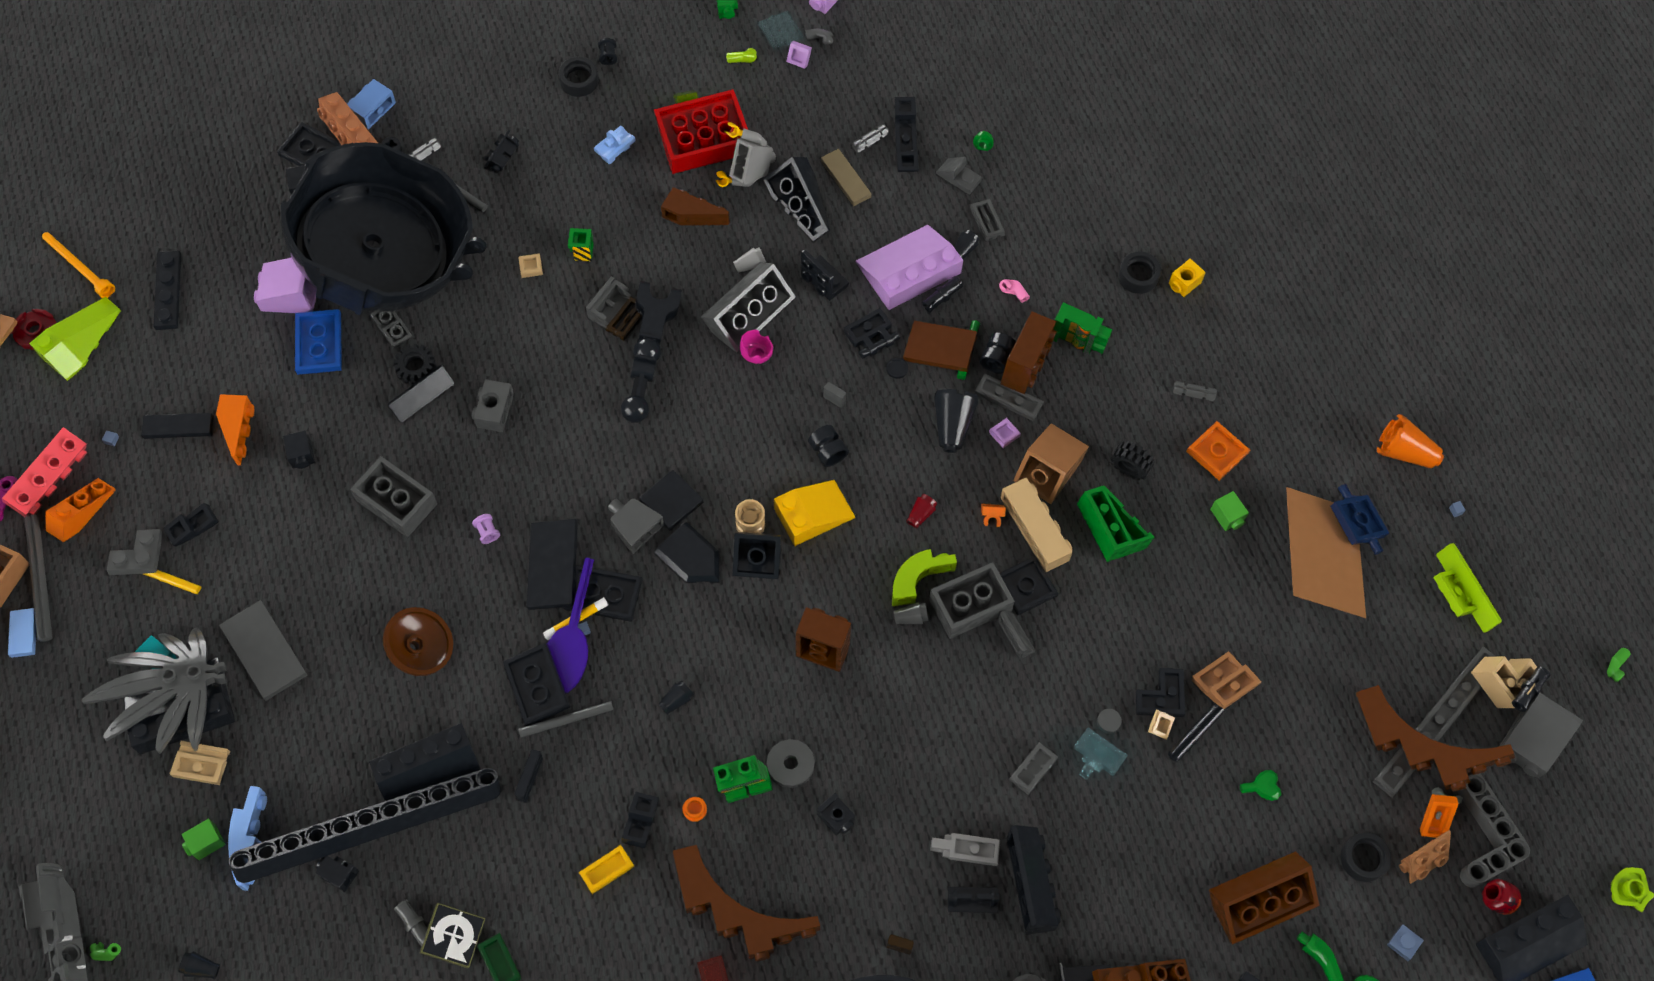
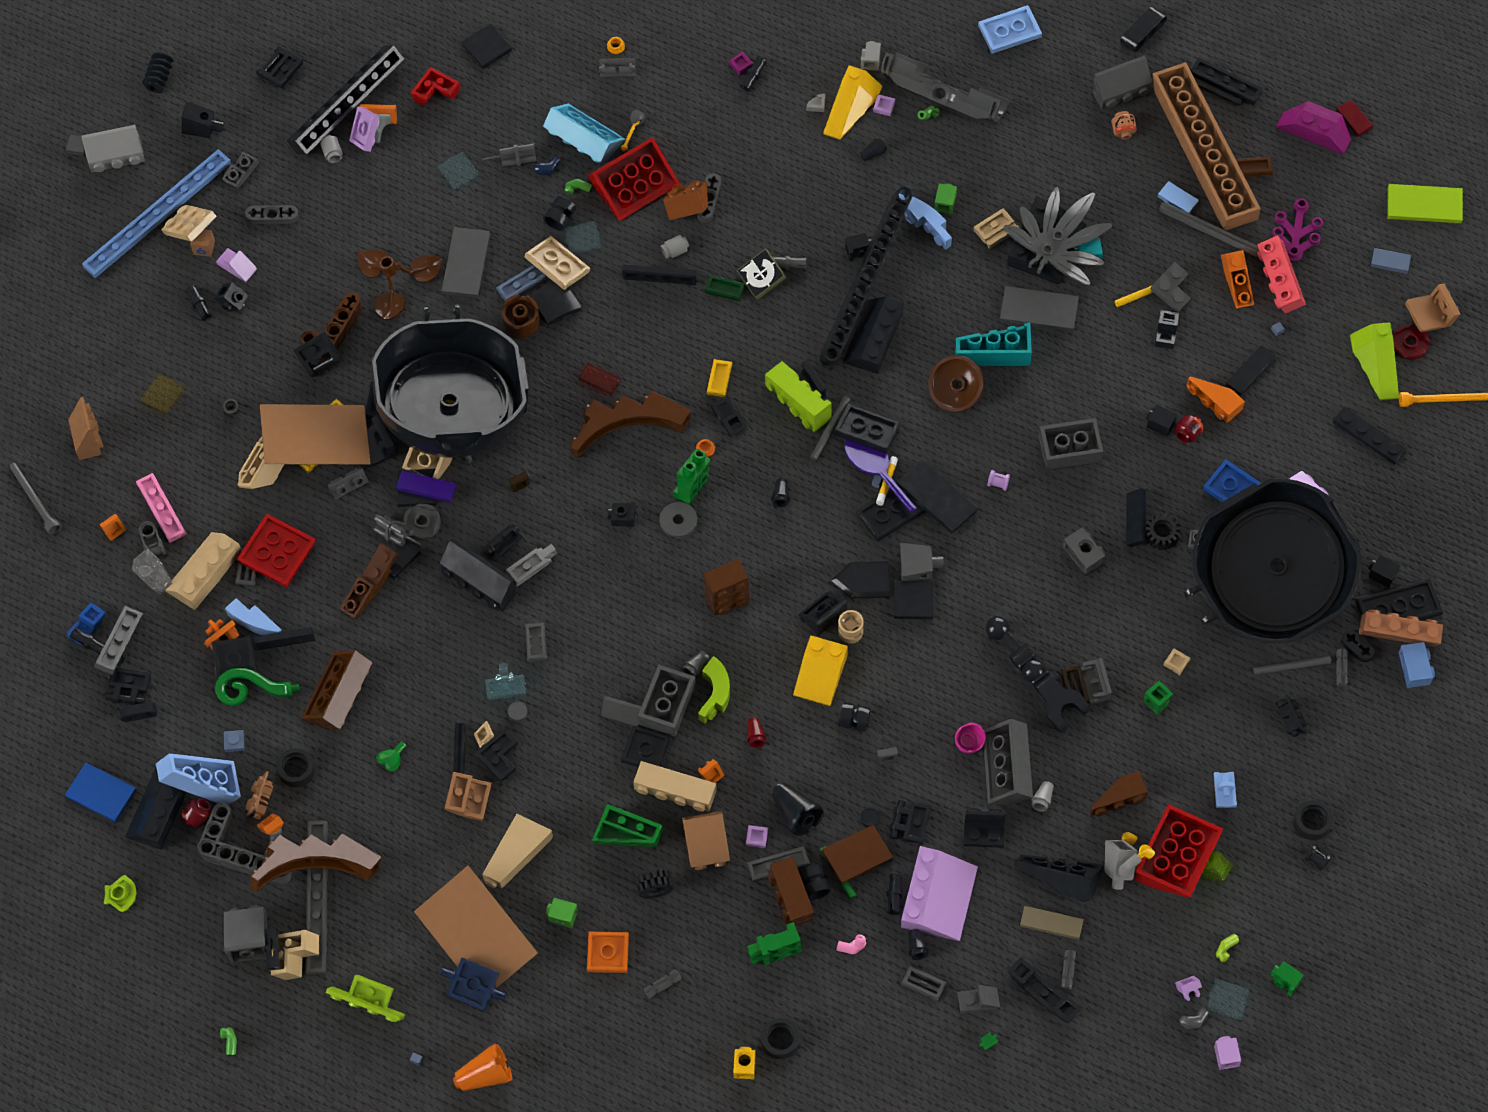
camera: 140 degrees right, 0 degrees up
(288, 420) = (1189, 428): none -> dark red head
(340, 638) = (998, 348): none -> teal wedge
(561, 770) = (798, 396): none -> lime wedge
(1223, 597) = (516, 849): none -> tan slope
(1478, 914) = (200, 776): none -> light blue wedge

